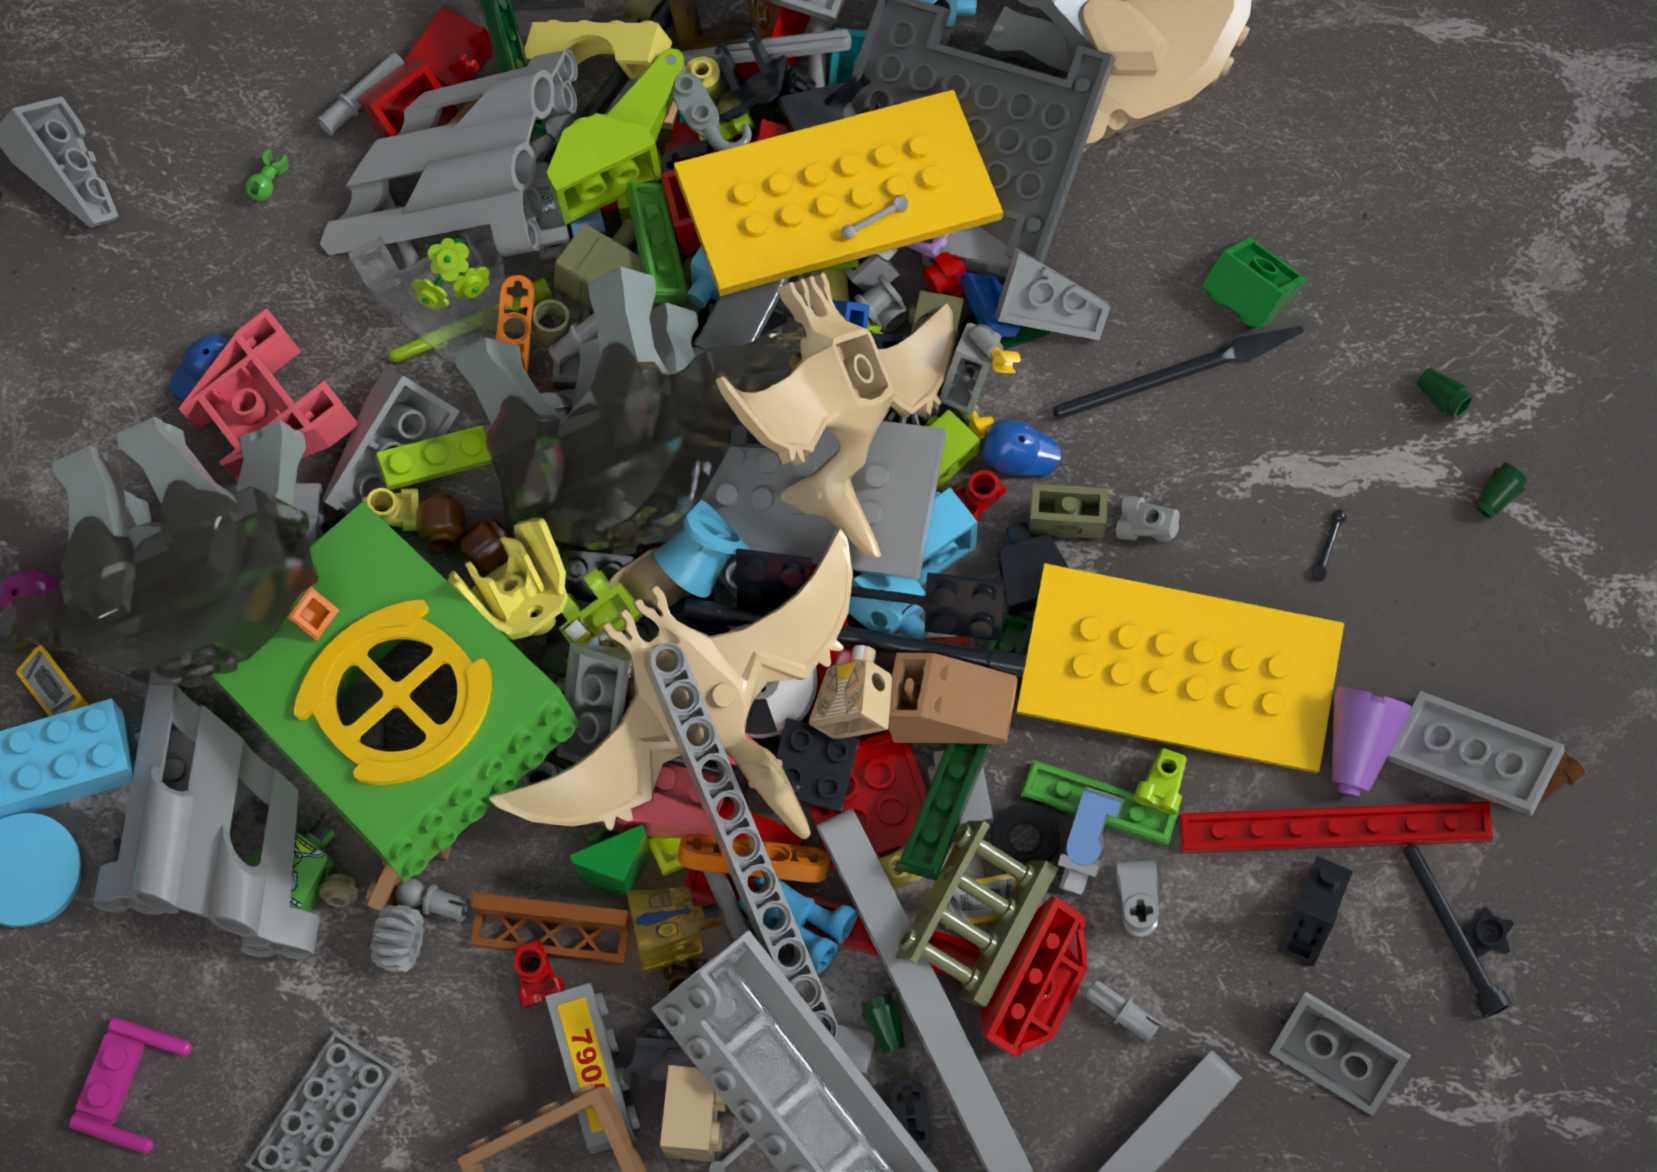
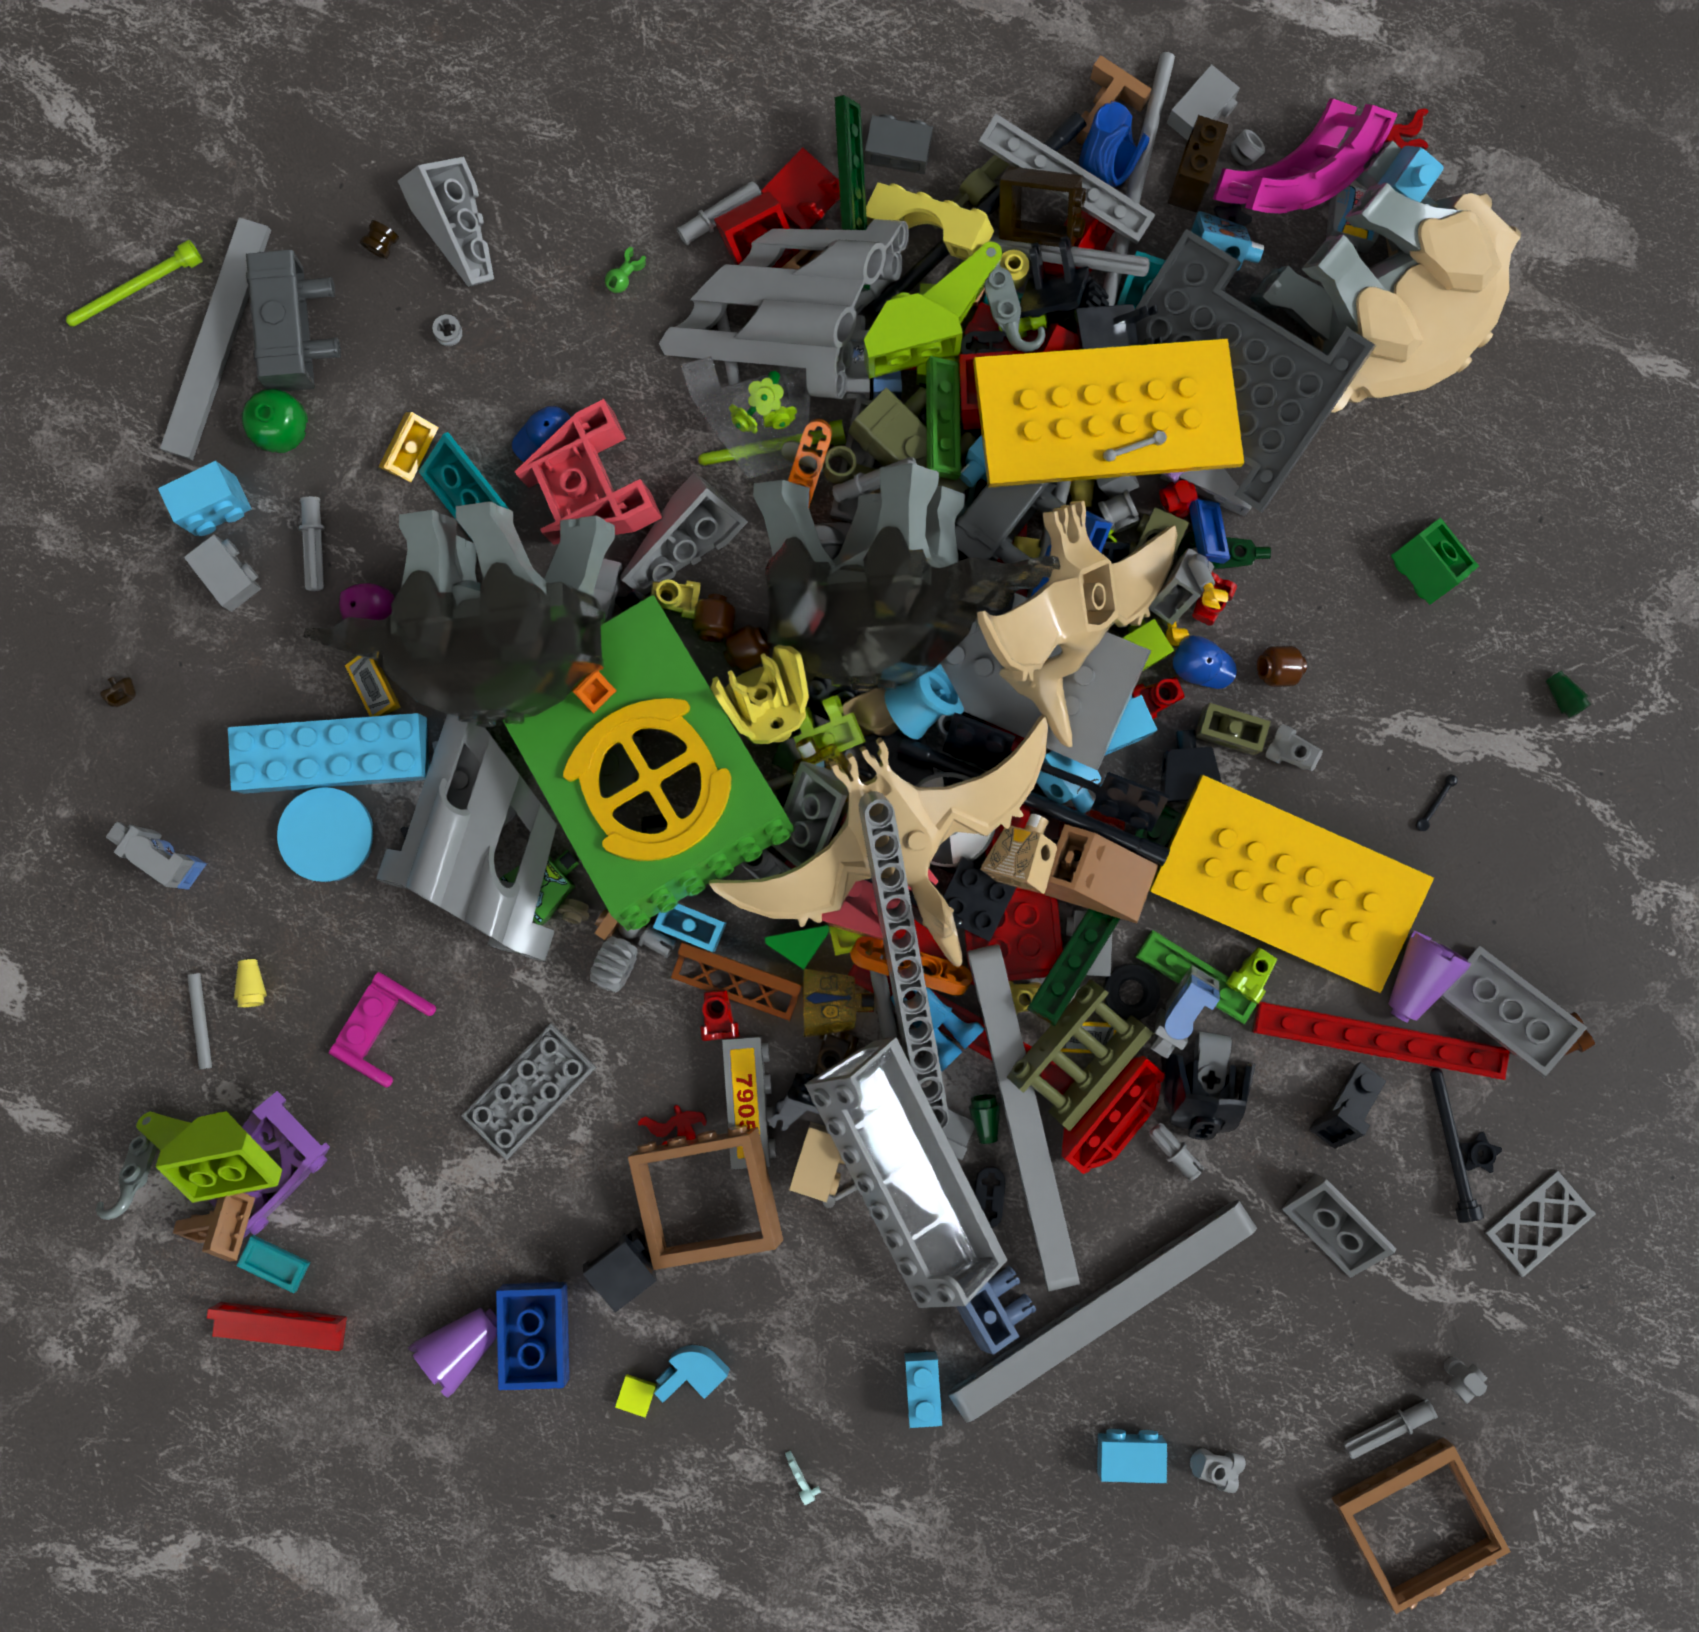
camera: 10 degrees right, 15 degrees up
(50, 415) = (408, 446): none -> yellow slope
(64, 281) = (439, 324): none -> light grey bush
(97, 424) = (456, 477): none -> teal slope
(433, 458) = (718, 560): lime plate -> none
(480, 871) = (691, 927): none -> medium azure brick
(514, 1112) = (682, 1120): none -> red piece
(1010, 387) = (1209, 615): none -> red plate
(1049, 301) = (1260, 542): light grey wing -> none
(1109, 432) = (1281, 666): none -> reddish brown head
(1140, 941) = (1196, 1109): none -> black piece
(1242, 350) = (1408, 616): black piece -> none
(1500, 490) = (1590, 789): dark green cone -> none
(1549, 999) = (1513, 1217): none -> light grey window

